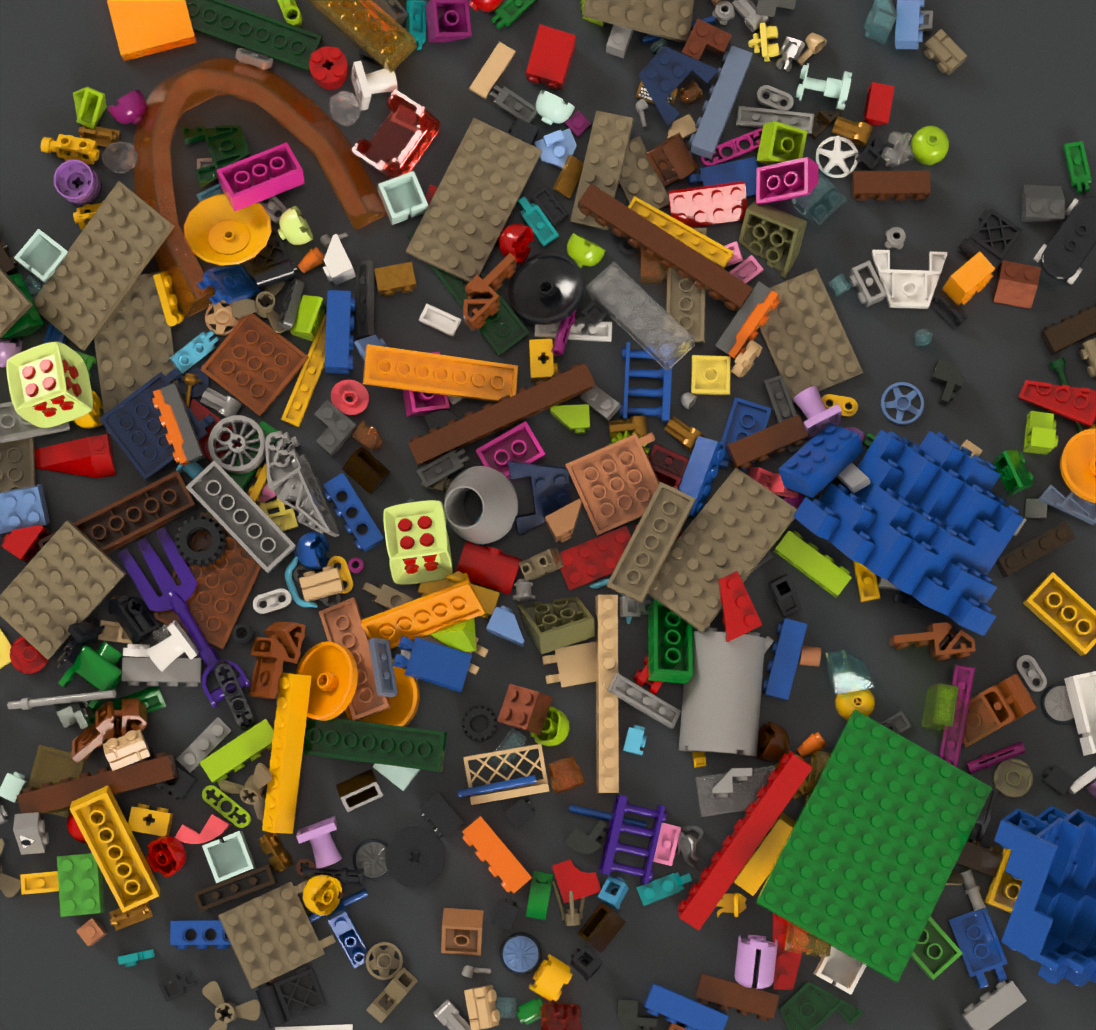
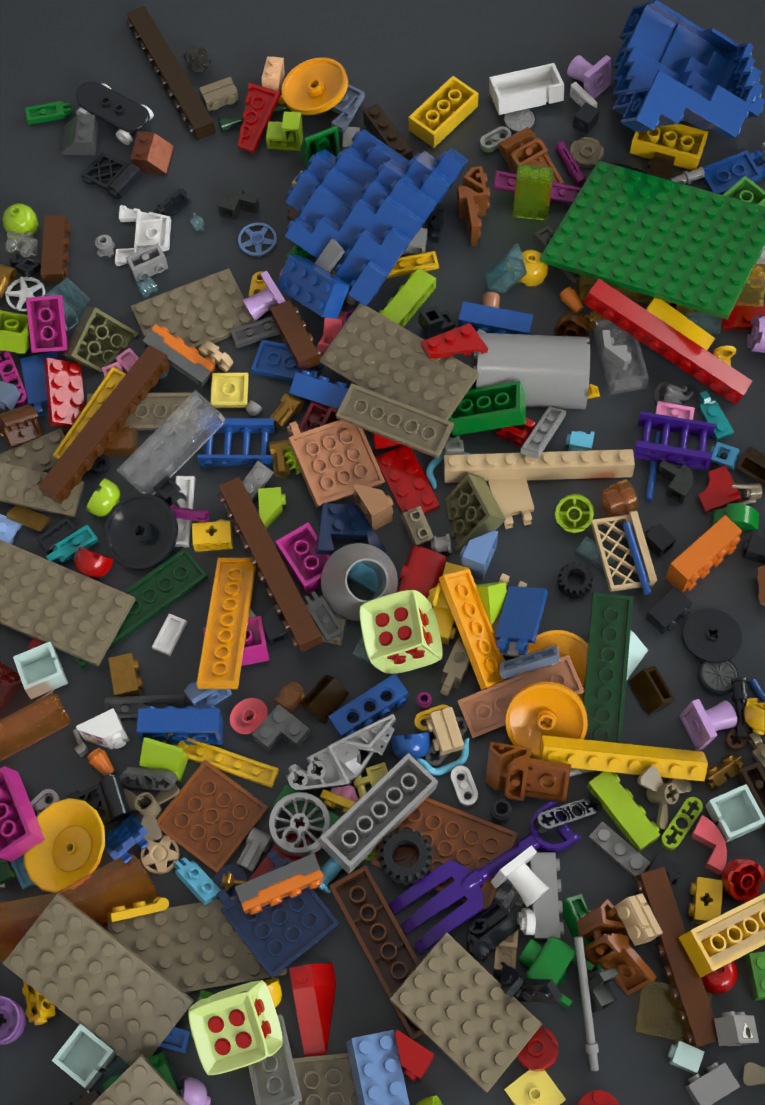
camera: 90 degrees left, 15 degrees down
(294, 227) = (65, 778): yellowish green cylinder -> none
(482, 294) = (146, 582): dark orange piece -> none
(525, 709) = (559, 534): copper brick -> none
(969, 279) = (146, 179): light orange brick -> none

